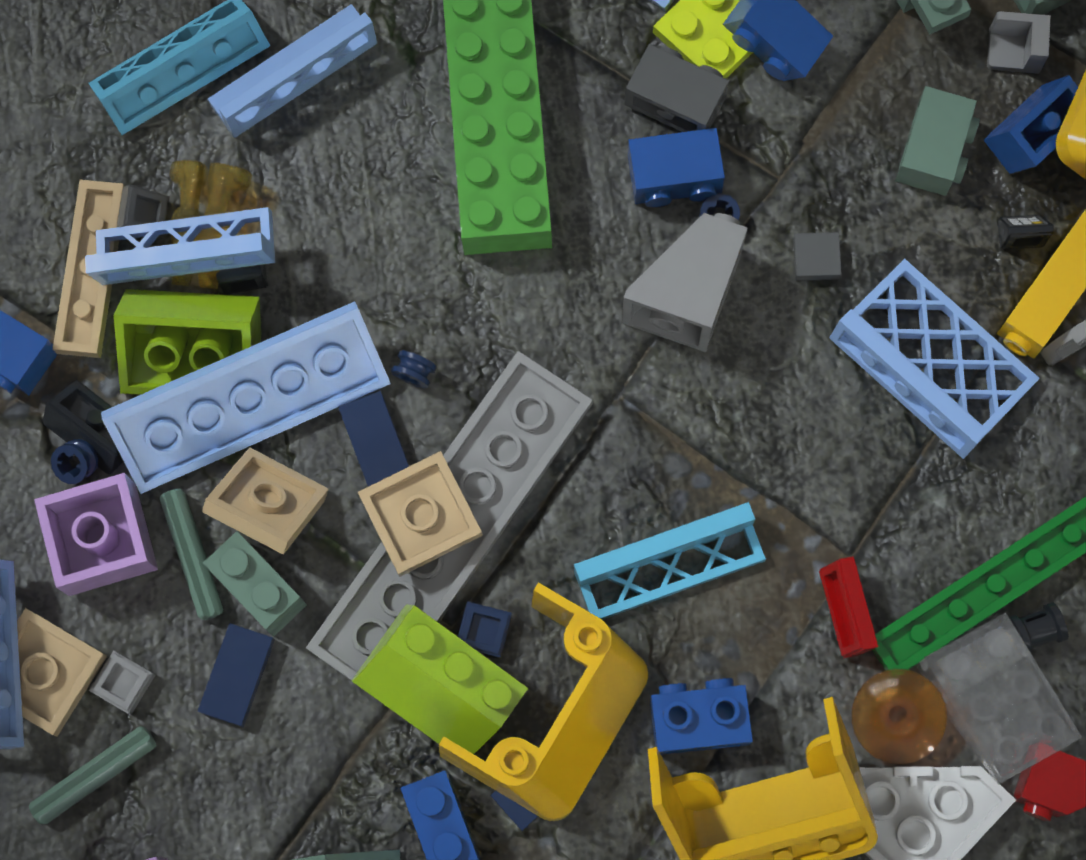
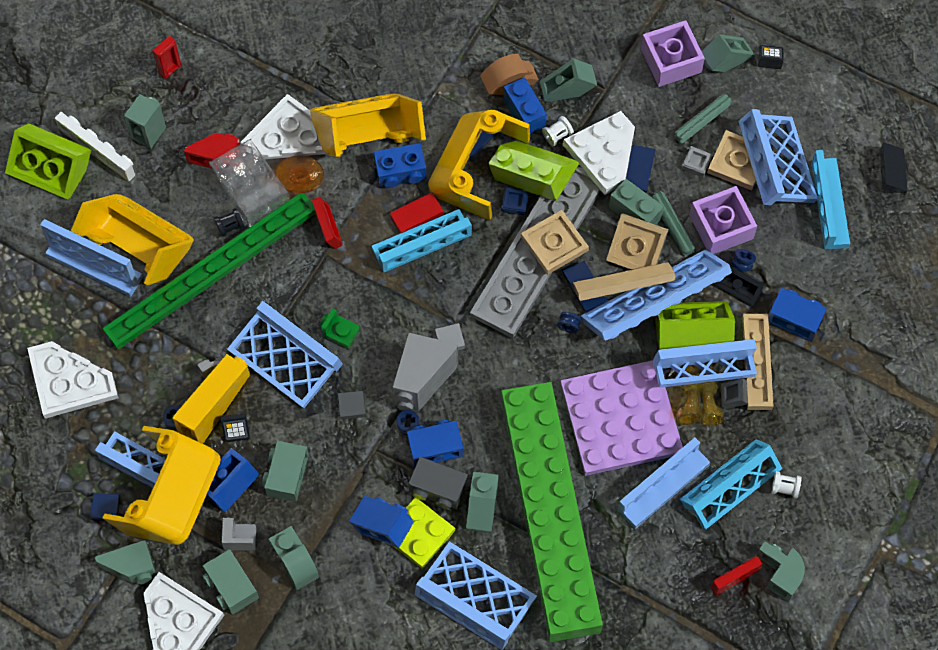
camera: 170 degrees right, 10 degrees down
(87, 48) = (786, 485): none -> white bush
(296, 711) = (603, 150): none -> white plate
(301, 426) = (624, 281): none -> tan tile
(347, 195) = (620, 418): none -> lavender plate
(382, 769) = (557, 131): none -> white bush
(602, 66) = (482, 502): none -> sand green slope
(632, 363) = (451, 334): none -> light grey tile
(674, 619) = (416, 213): none -> red tile
(833, 397) = (338, 329): none -> green bracket

